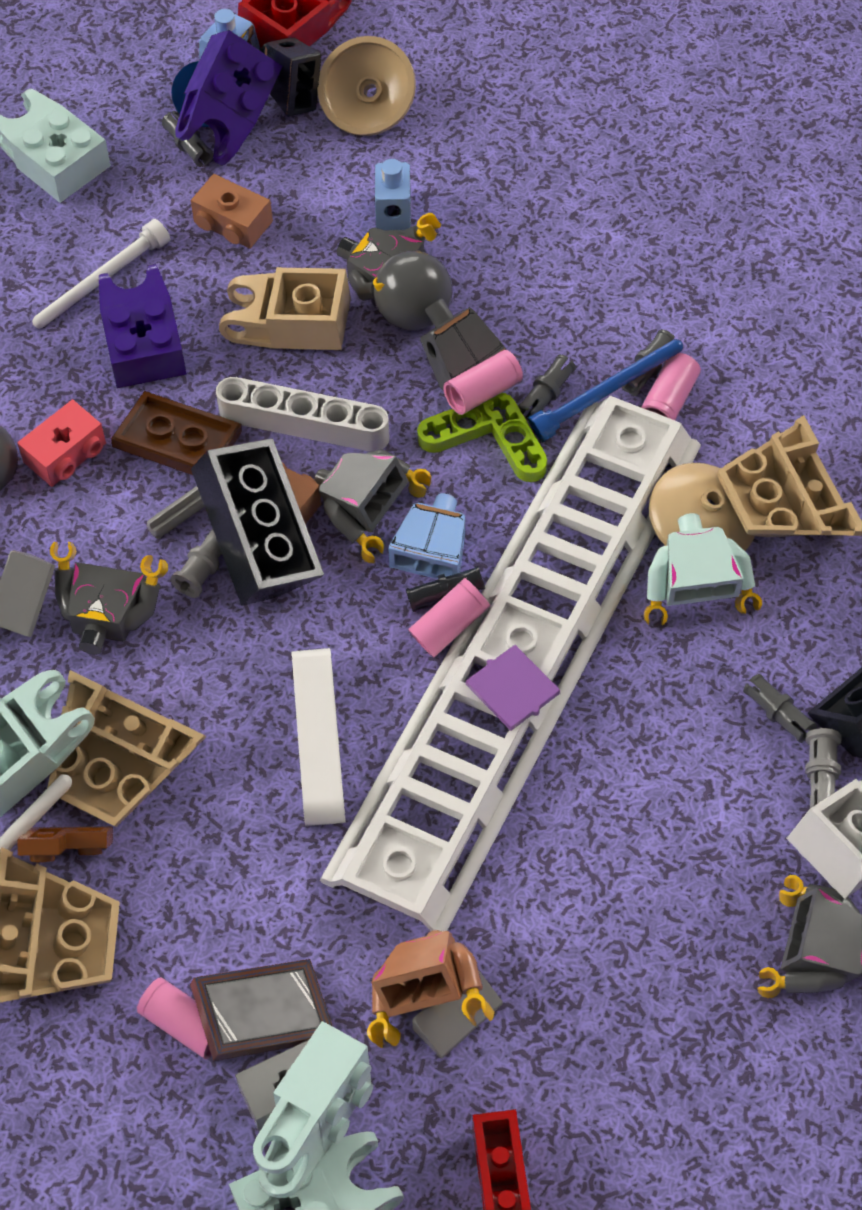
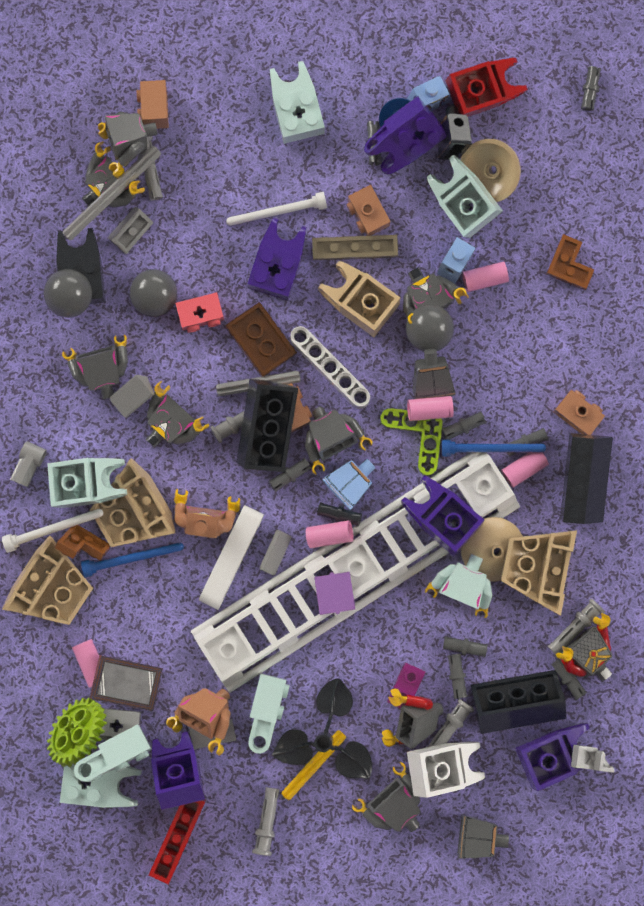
camera: 25 degrees right, 25 degrees up
(98, 874) = (91, 567): none -> blue piece
(223, 1126) = (76, 732): none -> lime gear
(239, 700) = (204, 521): none -> nougat torso
(243, 258) = (355, 247): none -> dark tan plate
(334, 579) = (290, 475): none -> dark grey pin
(355, 127) = (459, 193): none -> light aqua brick
(382, 693) = (275, 552): none -> light grey slope
(441, 1088) = (176, 773): none -> dark purple brick
(450, 201) = (485, 276): none -> bright pink pin
(521, 911) = (267, 709): none -> light aqua brick
(547, 146) = (564, 265): none -> dark orange plate
(601, 489) = (440, 509): none -> dark purple brick
(607, 959) = (296, 750): none -> black plant
(647, 1114) = (265, 831): none -> light grey pin
(653, 966) = (311, 767): none -> yellow axle
(694, 291) = (579, 413): none -> nougat brick
(714, 761) = (408, 681): none -> magenta brick
(760, 661) = (465, 646): none -> dark grey pin
(762, 353) = (586, 478): none -> black slope
(767, 793) = (416, 720): none -> dark grey torso

